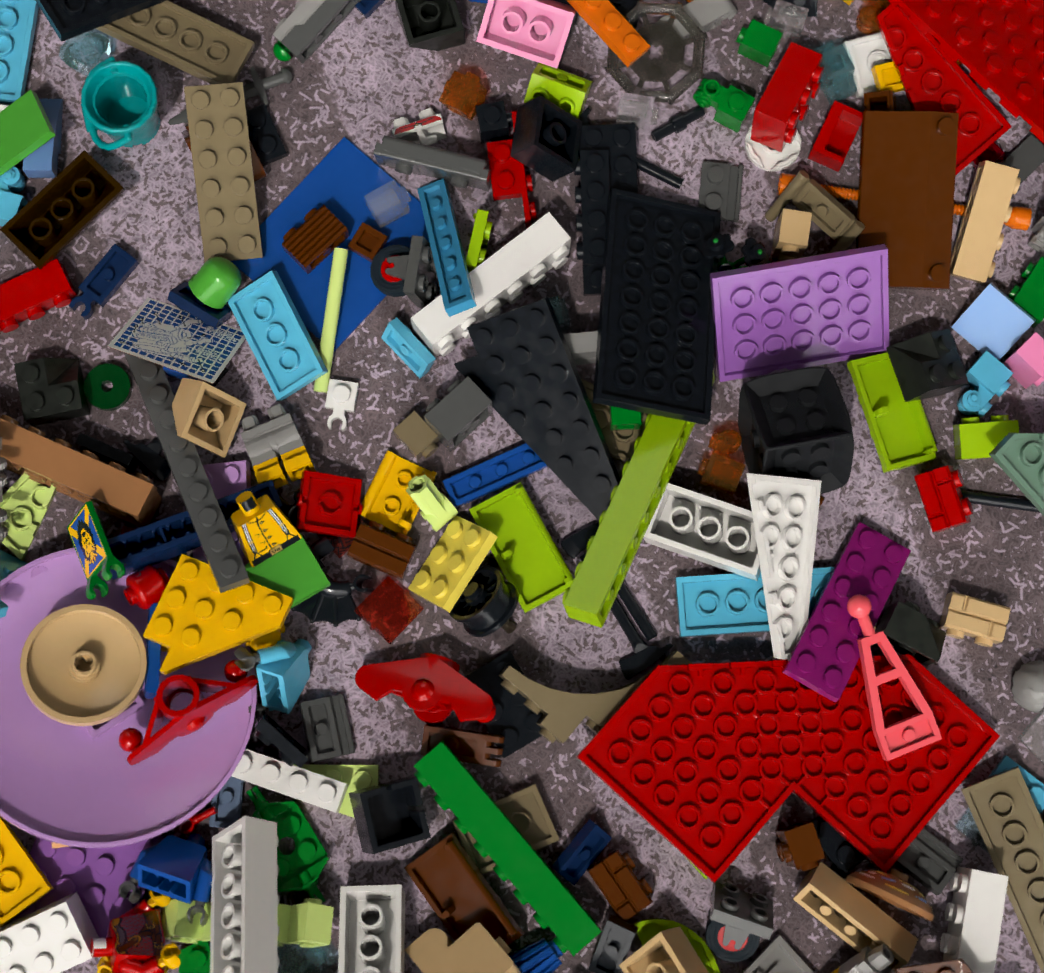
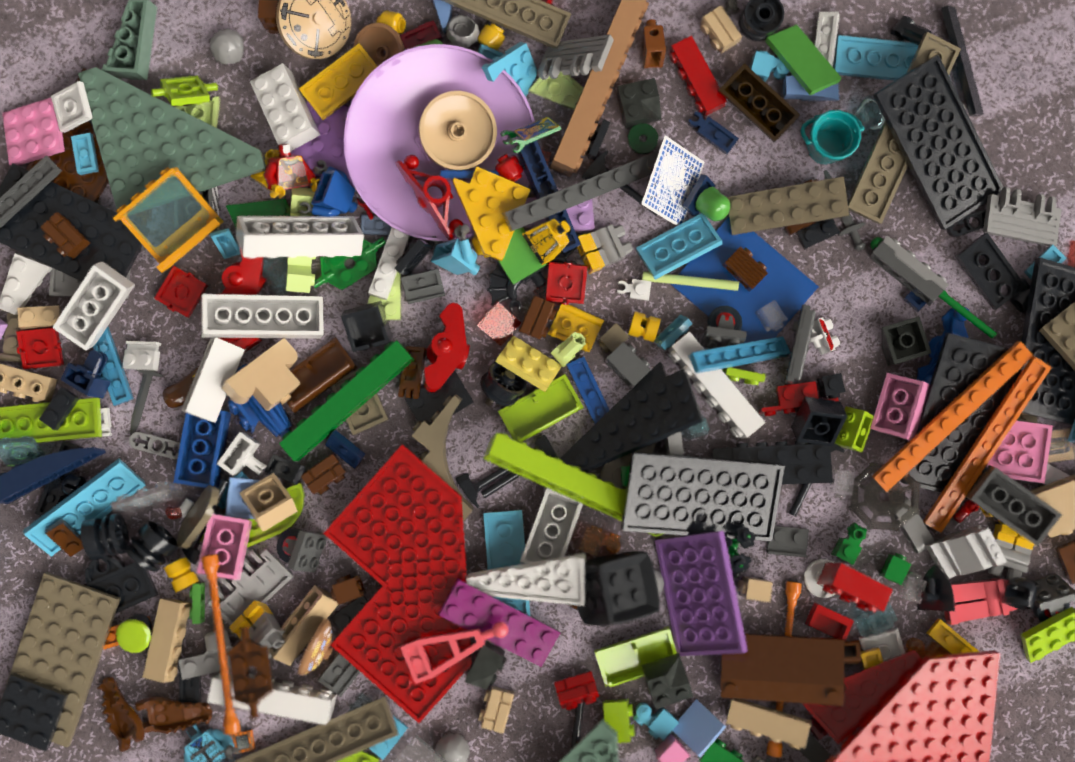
camera: 90 degrees right, 5 degrees up
(206, 415) = (621, 201): tan slope -> none
(367, 242) = (744, 303): reddish brown plate -> none
(406, 382) = (651, 326): none -> yellow wheel
(462, 94) = (850, 365): clear orange brick -> none
(677, 123) = (835, 512): black bar -> none
(825, 210) = (774, 610): dark tan plate -> none

